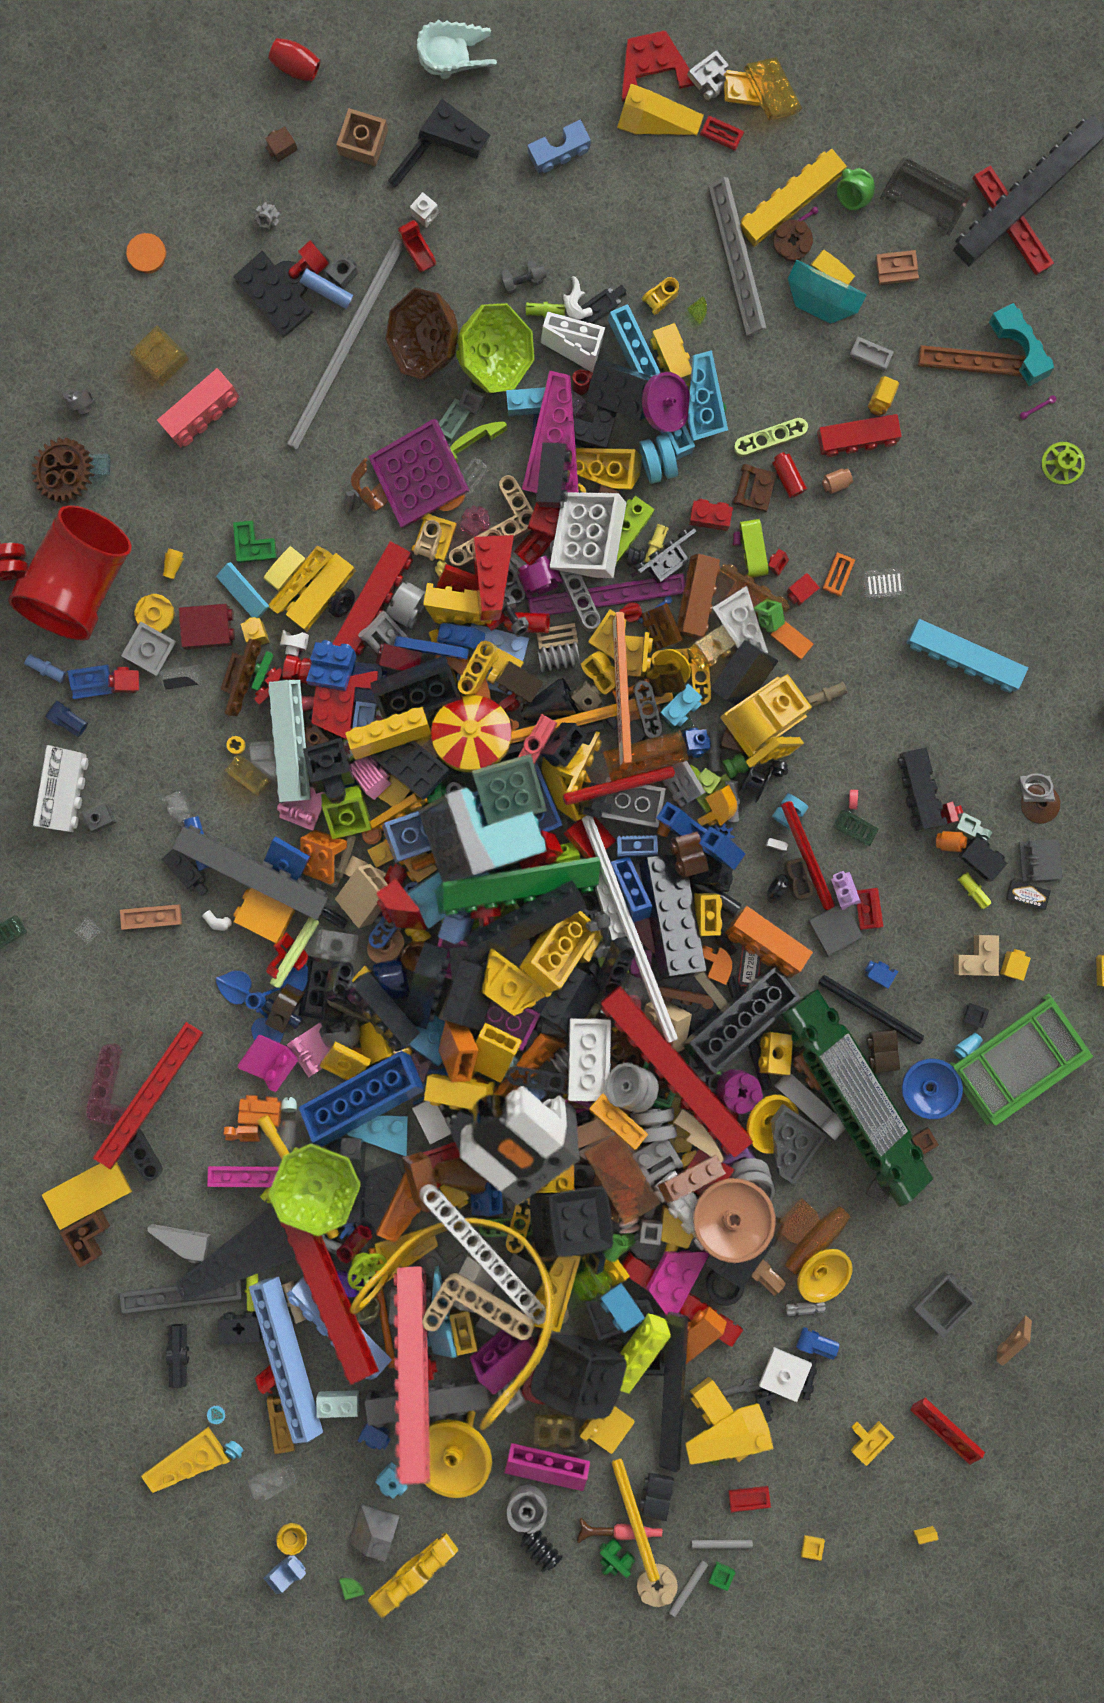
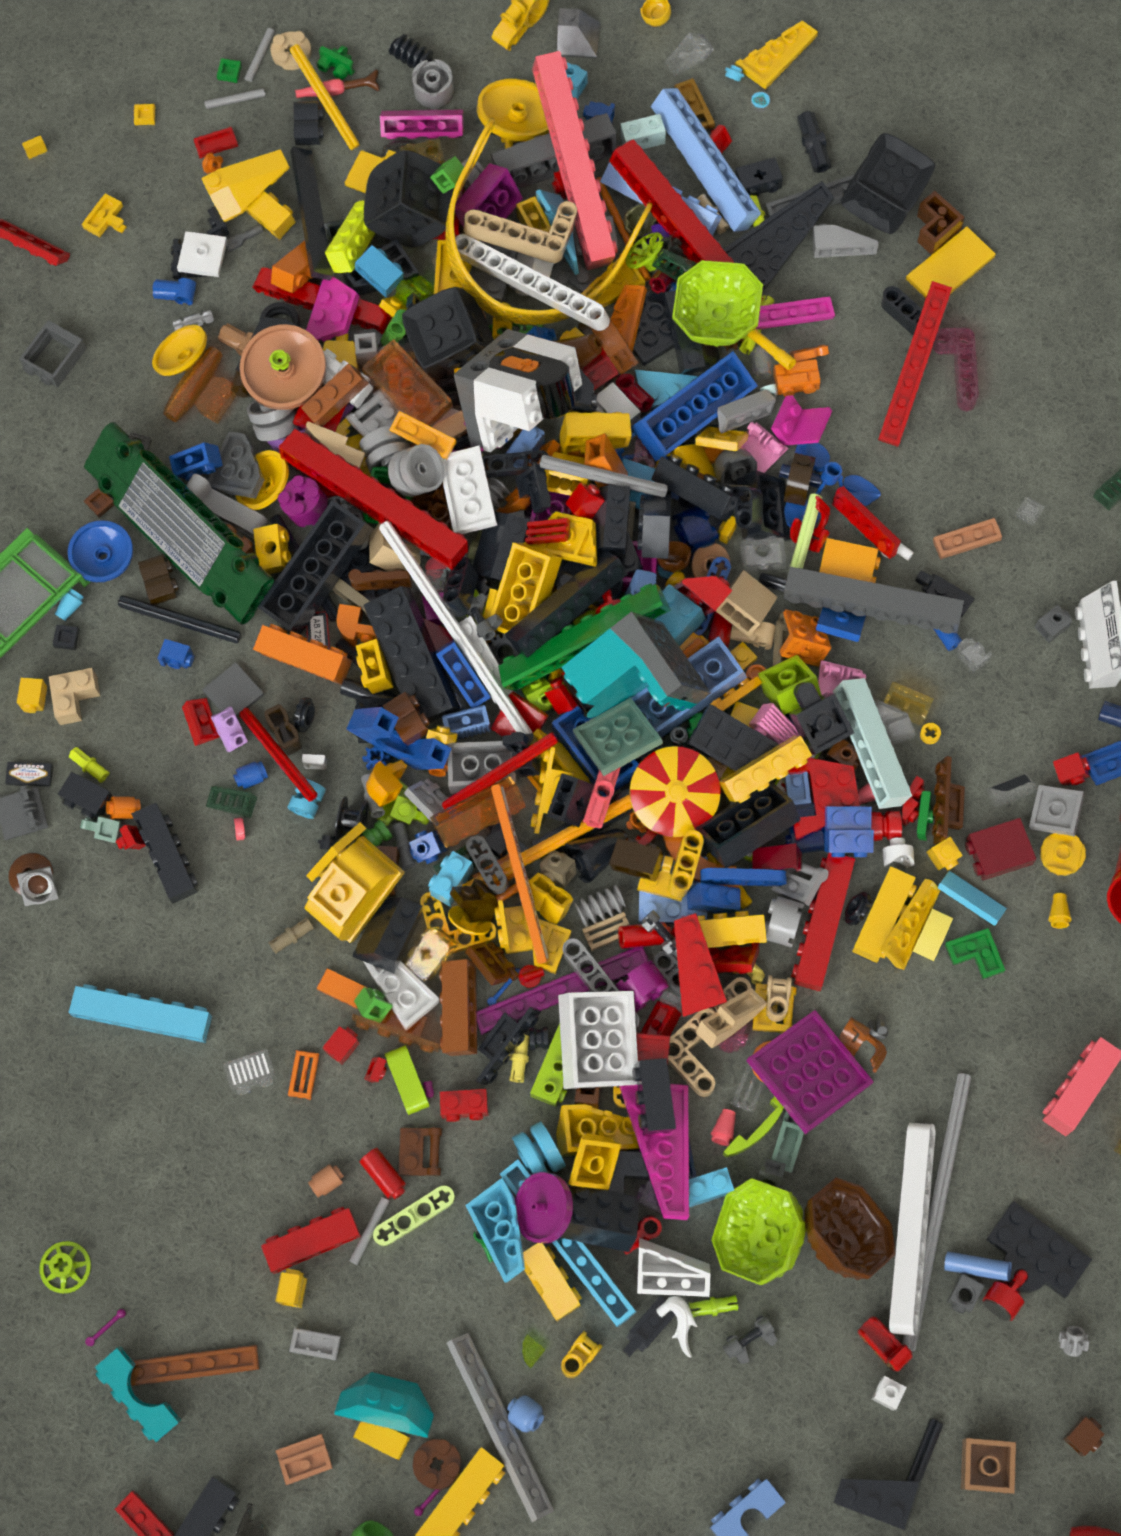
camera: 170 degrees right, 15 degrees down
(120, 1283) = (888, 183): none -> black piece
(236, 950) = (866, 522): none -> red plate
(316, 1086) = (745, 410): none -> light grey slope
(342, 1243) = (678, 261): none -> clear green slope
(342, 1264) = (671, 245): none -> pearl dark grey gear
(369, 331) = (912, 1229): none -> white beam
(412, 1129) = (634, 392): none -> dark red piece
(464, 1035) = (602, 476): none -> light grey axle
(473, 527) = (730, 1017): none -> tan slope
(485, 1015) = (585, 501): none -> red brick
(500, 448) = (724, 1128): none -> coral cone
(526, 1046) = (533, 485): none -> black plate
(536, 1386) = (447, 174): none -> bright green brick
(541, 1000) = (547, 527): none -> red tile
(615, 432) = (595, 1162): none -> yellow slope
(661, 832) = (442, 734): none -> yellow plate
(715, 261) = (525, 1413): none -> medium blue head
(741, 1224) = (275, 356): none -> lime plate
(757, 1473) = (208, 163): none -> orange plate
(810, 433) = (368, 1232): none -> light grey bar
(829, 1156) = (196, 460): none -> blue brick
(834, 846) = (250, 775): none -> blue brick

